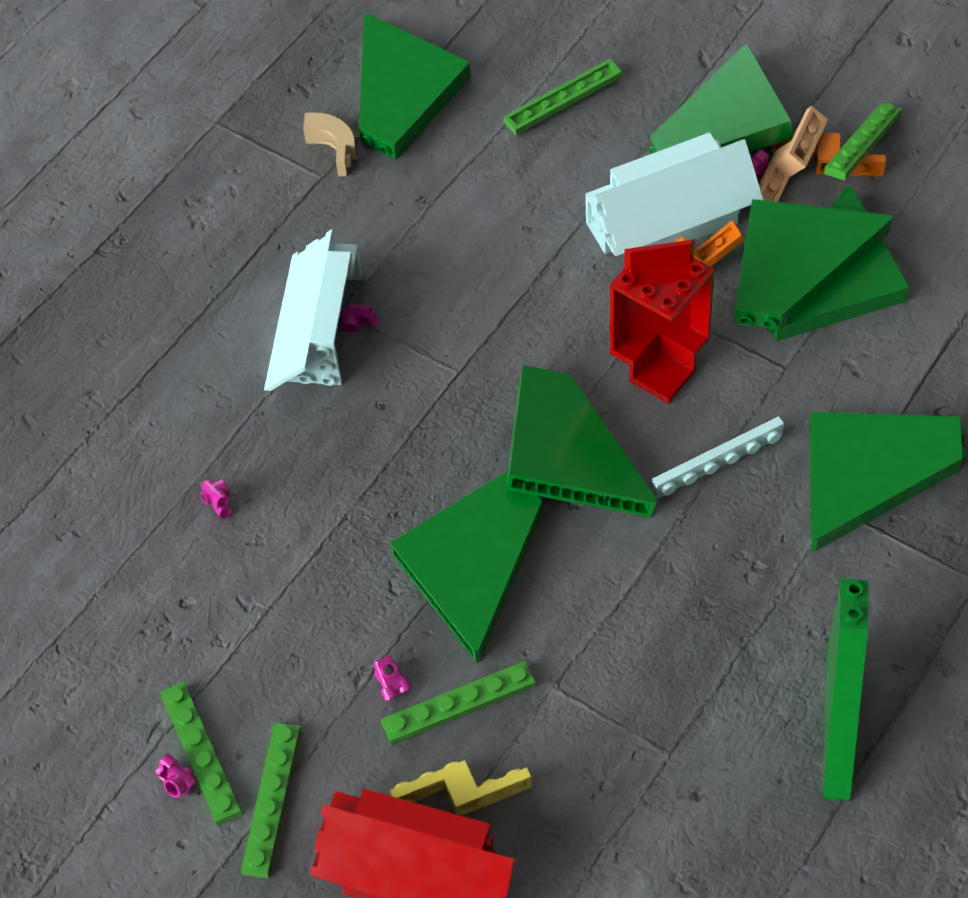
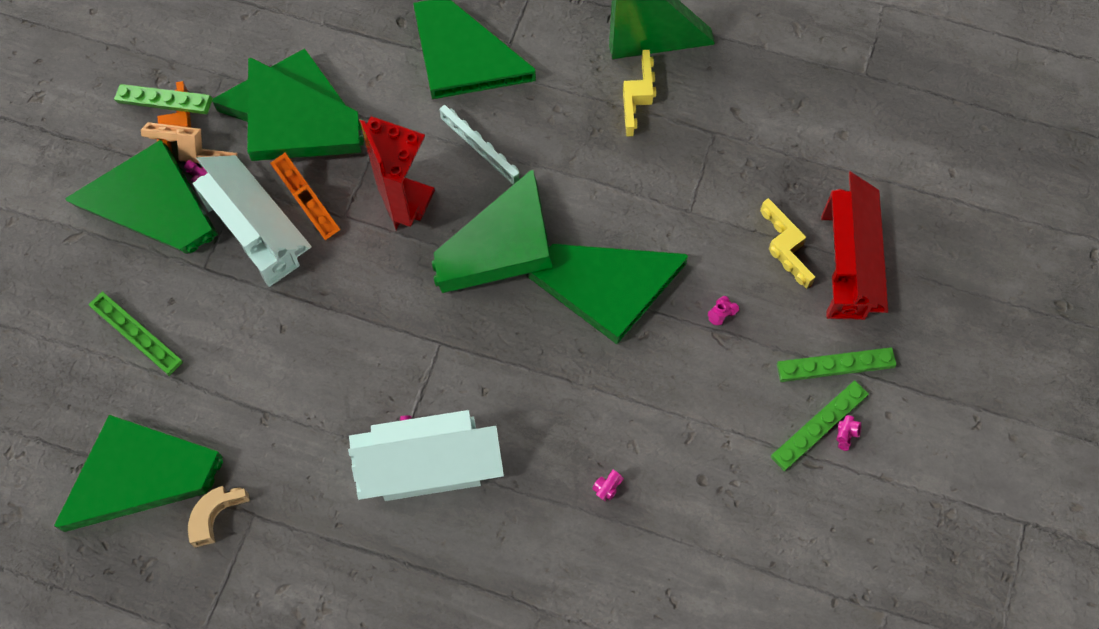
camera: 110 degrees left, 10 degrees up
(458, 702) = (723, 265): bright green plate -> none
(753, 666) = (638, 92): none -> light yellow bracket

